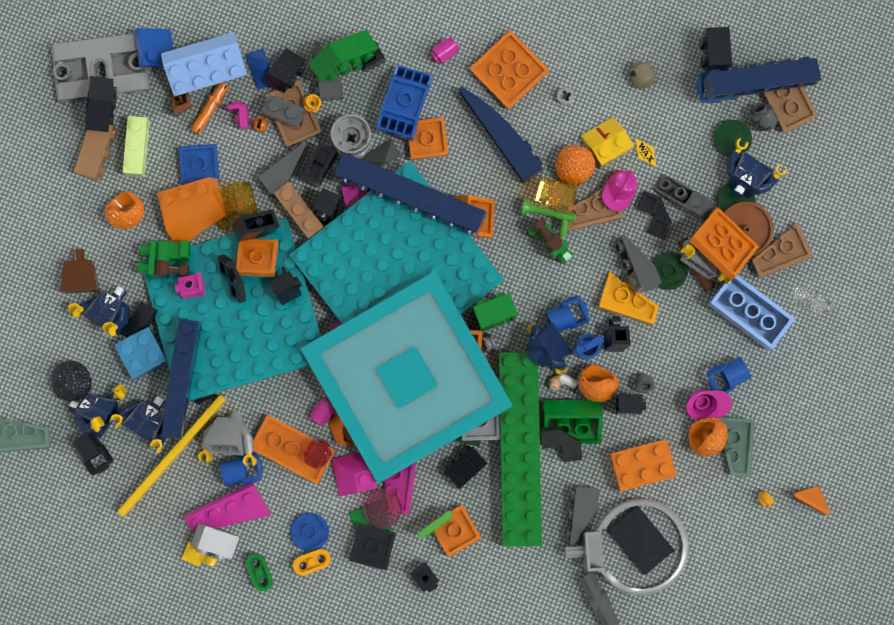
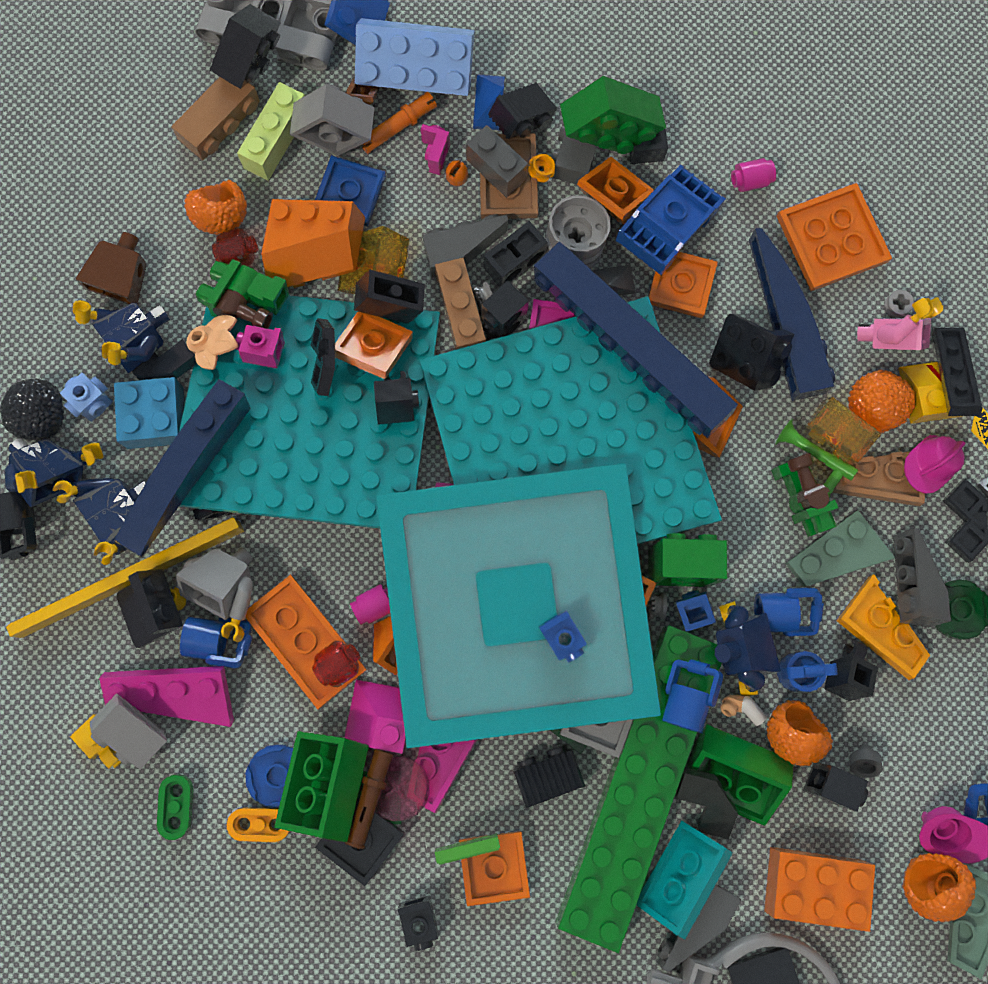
camera: 20 degrees right, 5 degrees down
(105, 363) = (85, 396): none -> light blue brick
(146, 231) = (235, 245): none -> clear red head
(162, 295) = (212, 340): none -> light nougat plate
(172, 128) = (332, 120): none -> light grey brick
(193, 468) = (148, 607): none -> black bracket
(310, 197) = (482, 293): none -> light grey bush
(338, 524) = (322, 786): none -> green brick
(363, 100) = (615, 189): none -> orange slope
(368, 520) = (369, 798): none -> reddish brown pin
(434, 379) = (560, 624): none -> blue brick
(485, 169) = (750, 352): none -> black bracket
(512, 336) = (695, 610): none -> blue brick
(525, 394) = (688, 706): none -> blue piece
(563, 491) = (683, 879): none -> teal plate
(573, 116) = (903, 333): none -> bright pink torso
(585, 265) = (839, 552): none -> sand green wing
(611, 129) = (957, 372): none -> black tile

